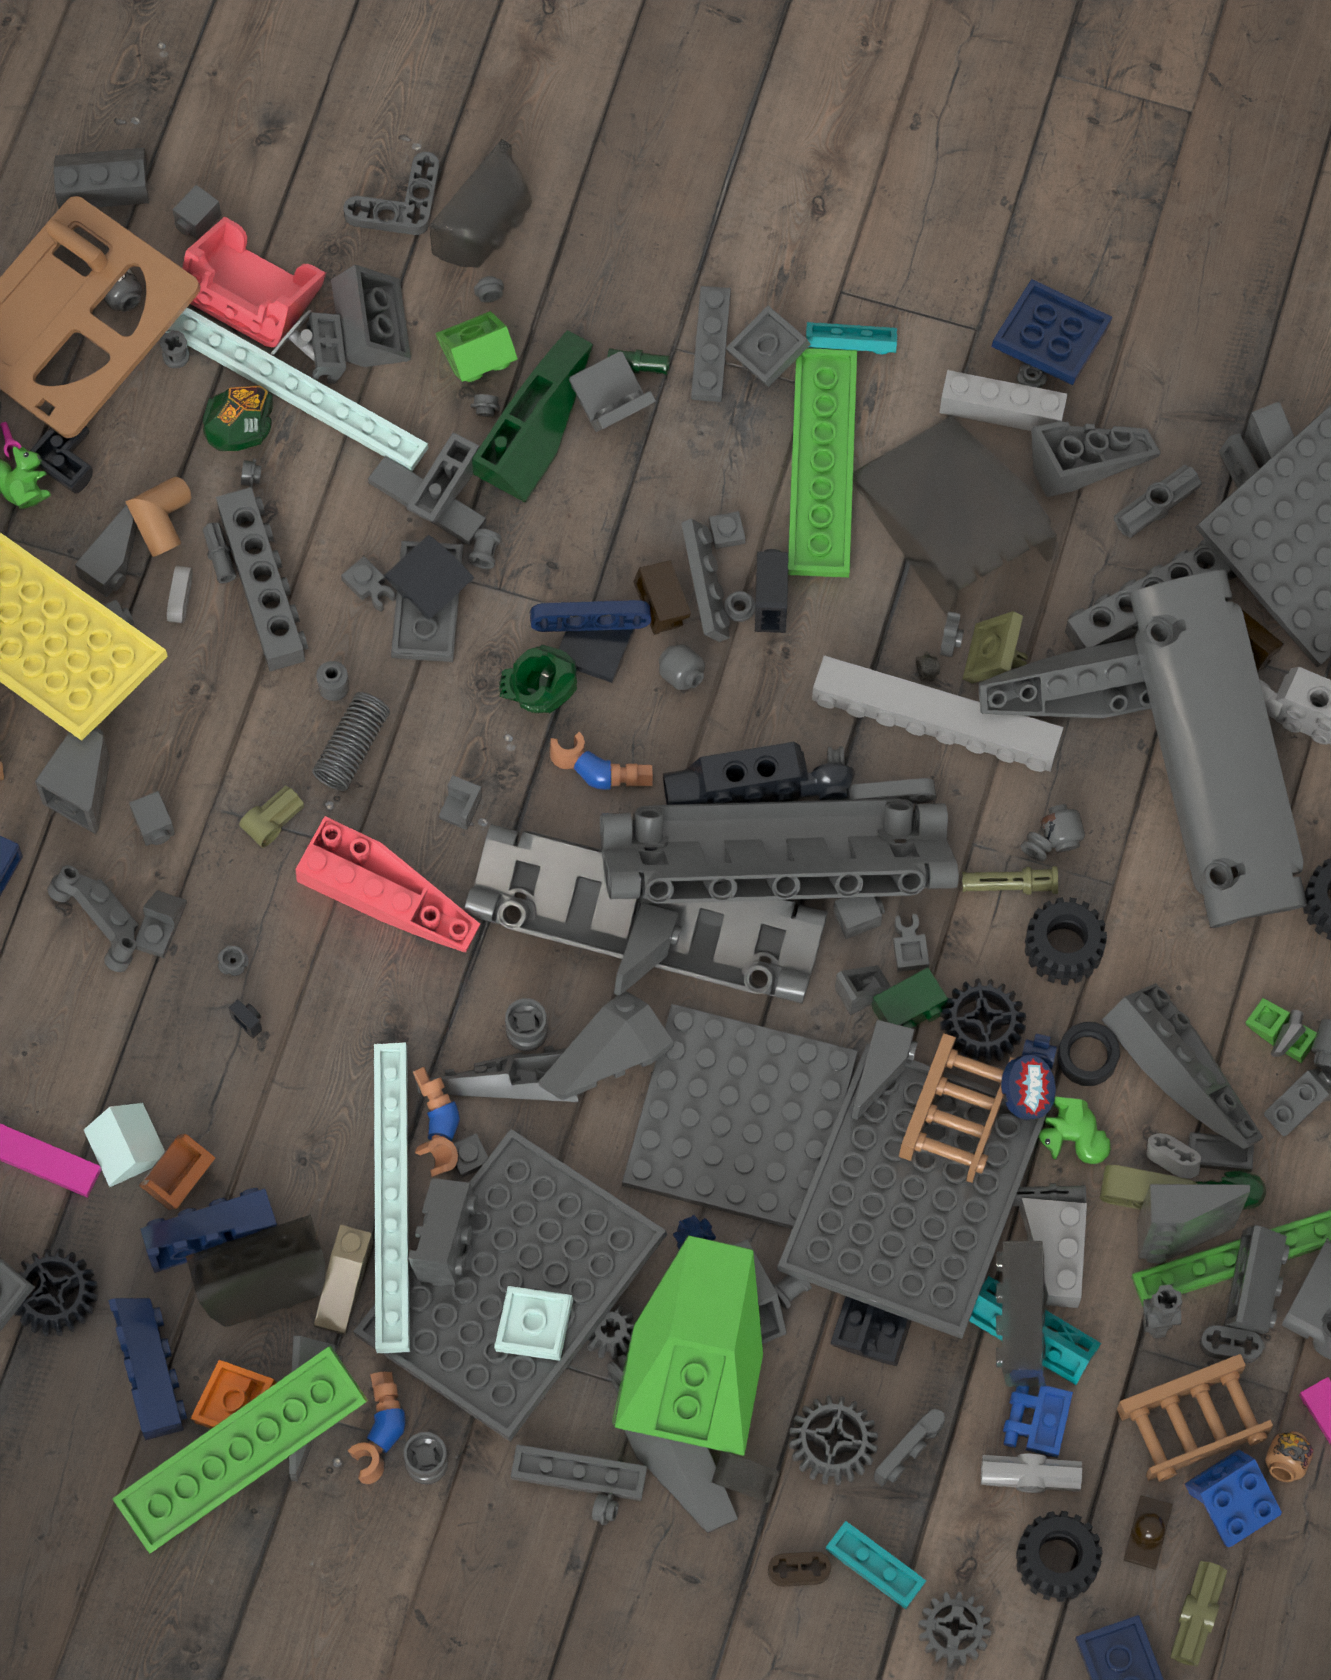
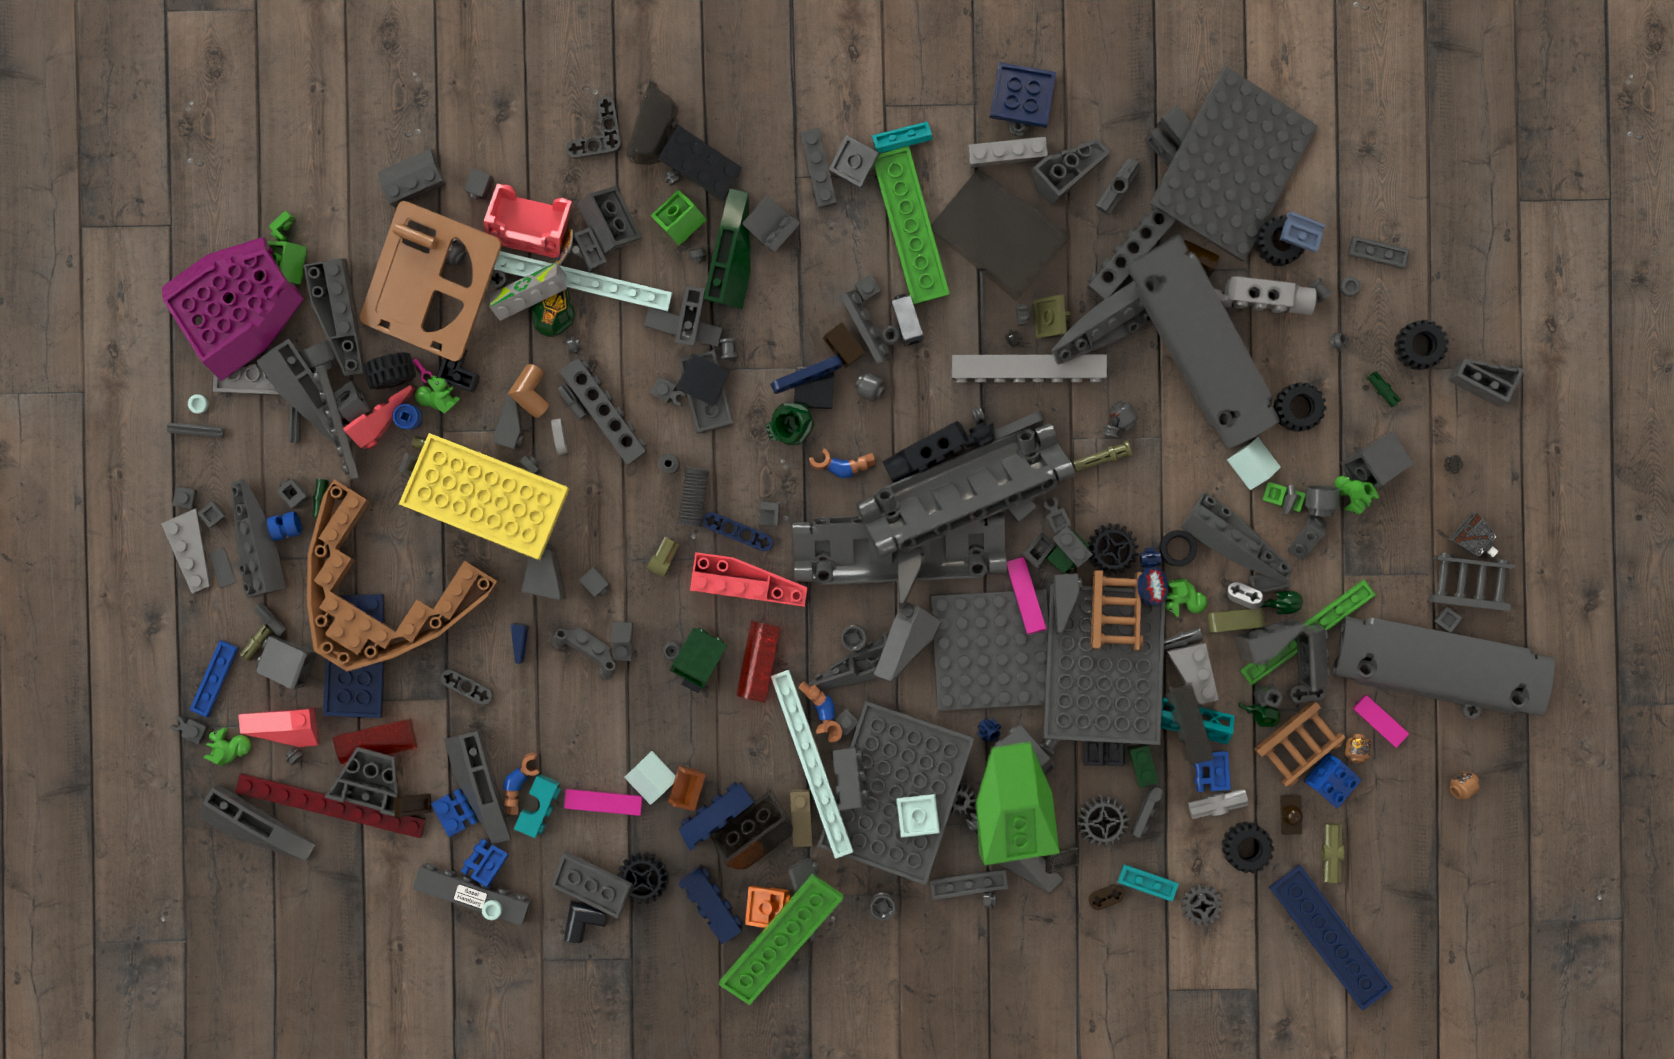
camera: 20 degrees left, 20 degrees up
(212, 372) = (528, 291): none -> light grey brick
(270, 976) = (698, 657): none -> dark green brick
(364, 1017) = (758, 661): none -> clear red brick
(386, 1430) = (854, 890): nougat piece -> none
(404, 813) = (739, 528): none -> dark blue beam
(535, 278) = (699, 162): none -> black plate
(644, 362) = (781, 194): dark green pin -> none
(821, 1045) = (1025, 596): none -> dark pink tile
(918, 989) = (1072, 546): none -> dark grey plate
(926, 1369) = (1142, 765): none -> dark green brick
(1074, 918) = (1162, 485): black tyre -> none
(1154, 1354) = (1265, 716): none -> dark green piece
(1247, 964) = (1254, 463): none -> light aqua slope

